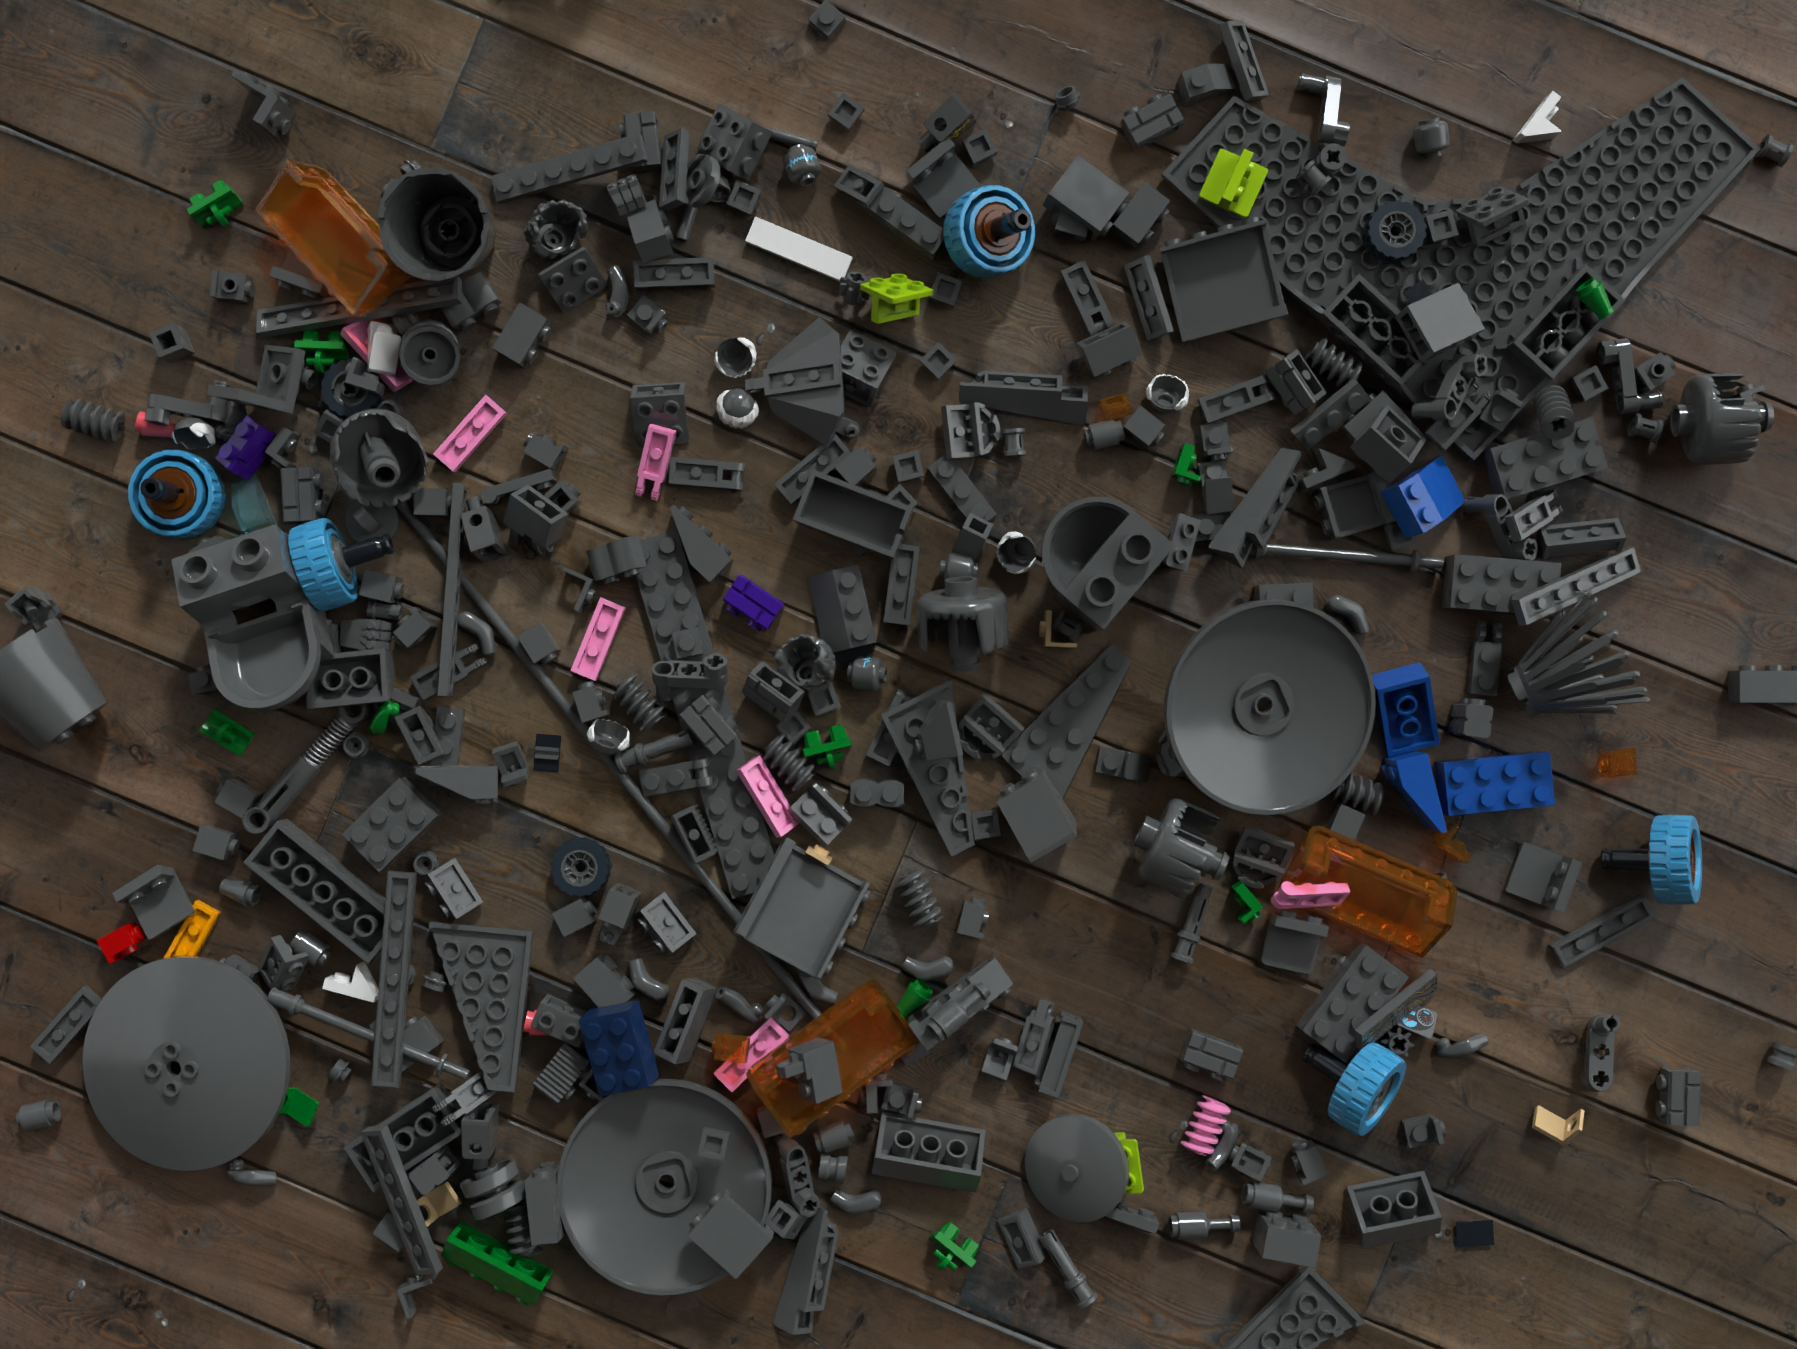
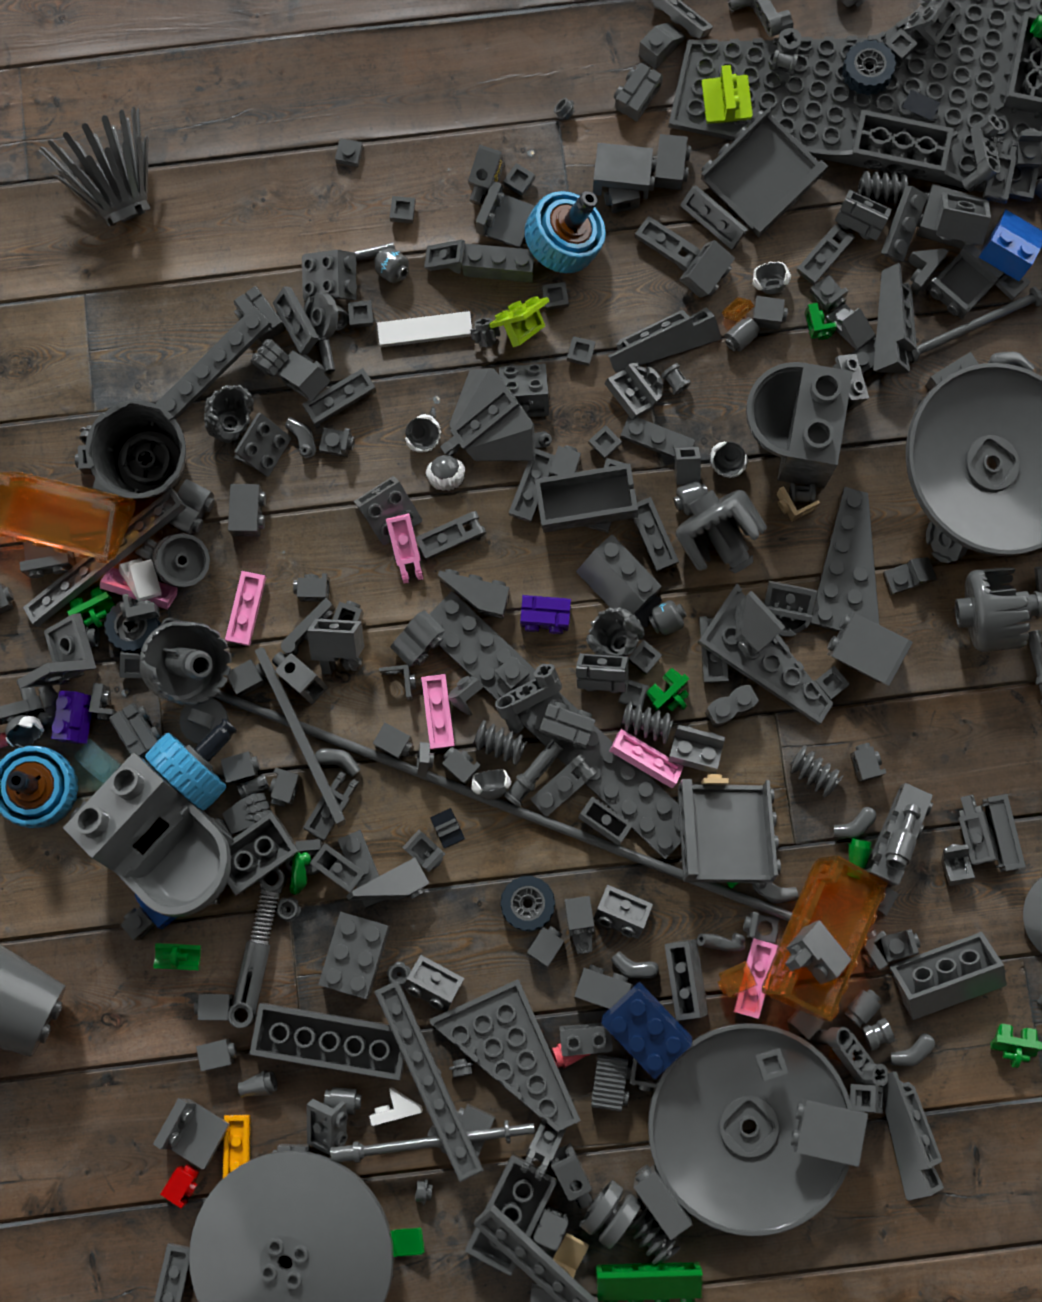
camera: 25 degrees left, 10 degrees down
(558, 678) = (424, 759): none -> dark grey plate
(631, 634) = (465, 689): none -> dark grey plate
(1440, 322) = (944, 109): brick -> none

